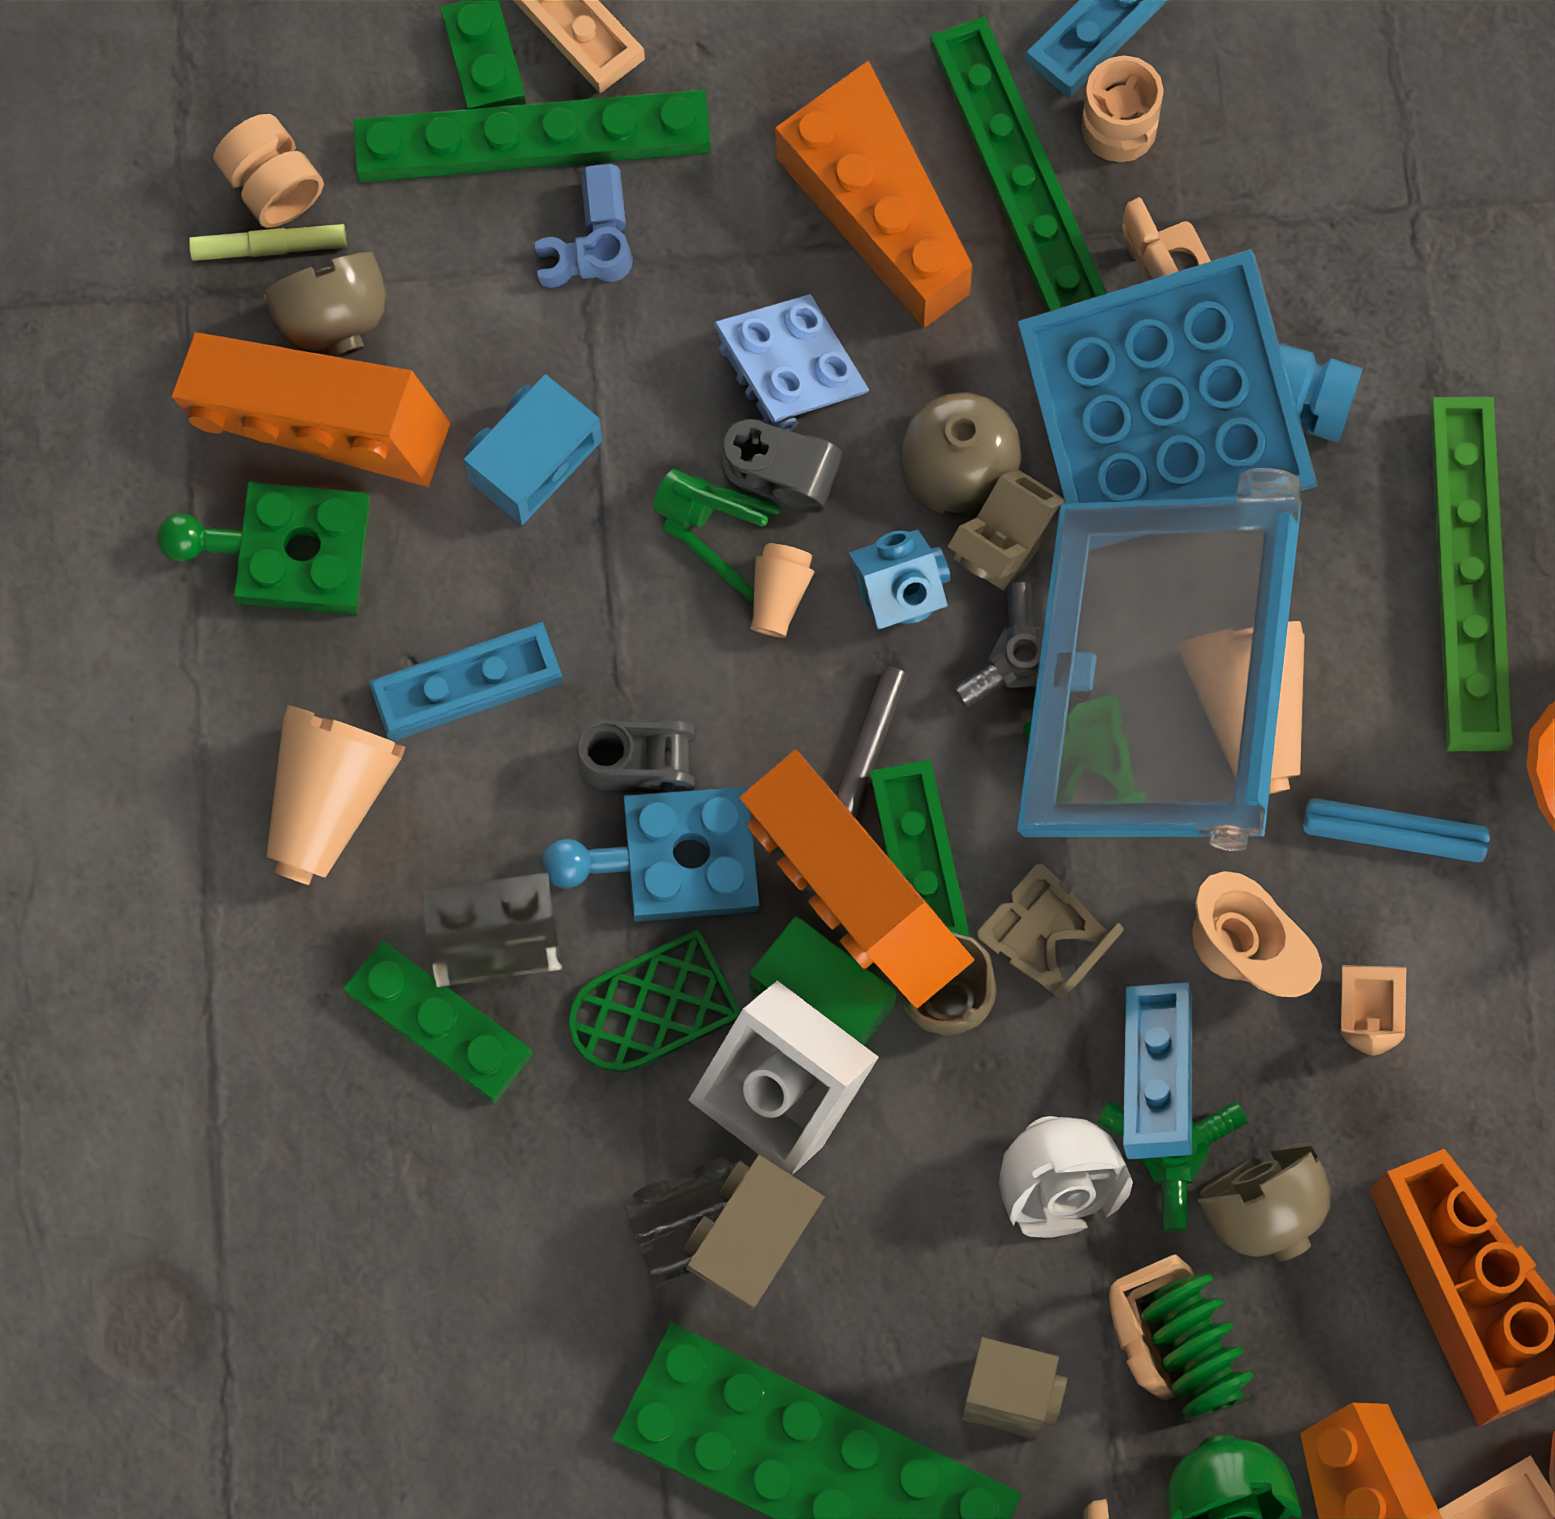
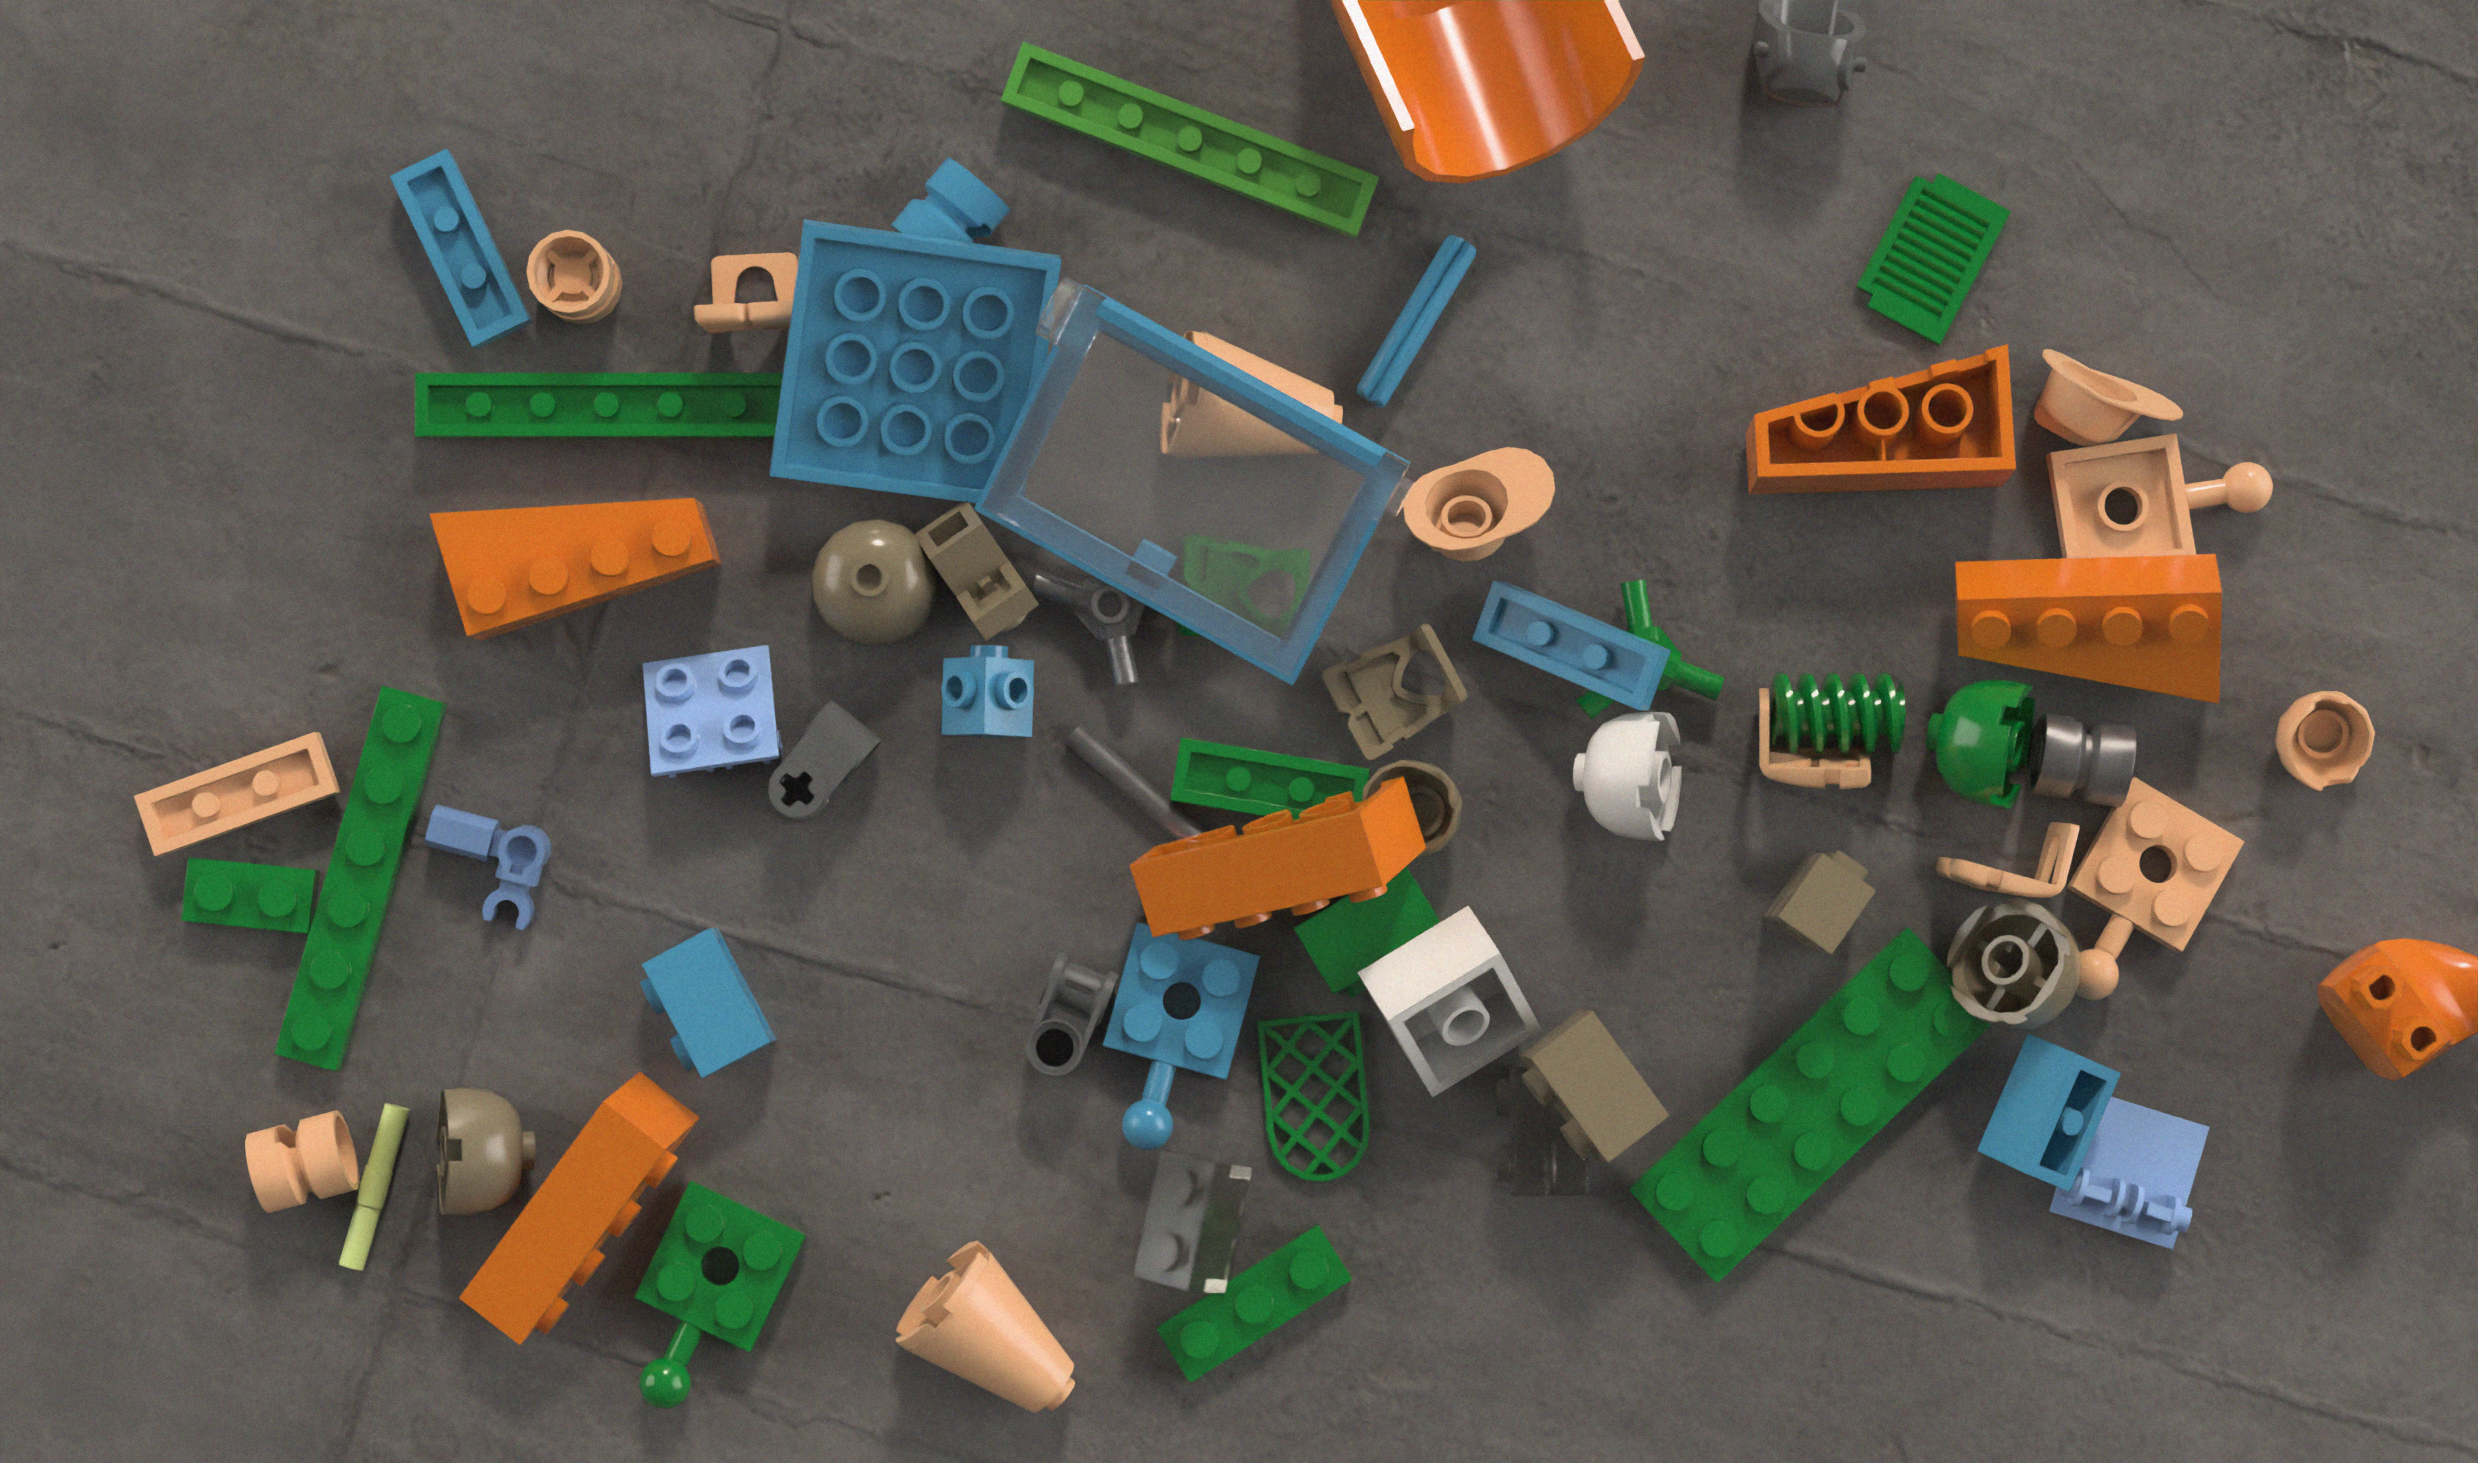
camera: 70 degrees left, 15 degrees up
(466, 682) = (921, 1154): dark azure tile -> none
(691, 501) = (822, 870): green plant -> none
(778, 587) = (946, 814): light nougat cone -> none
(1269, 1204) = (1732, 594): dark tan cylinder -> none
(1373, 1007) = (1582, 416): light nougat plate -> none

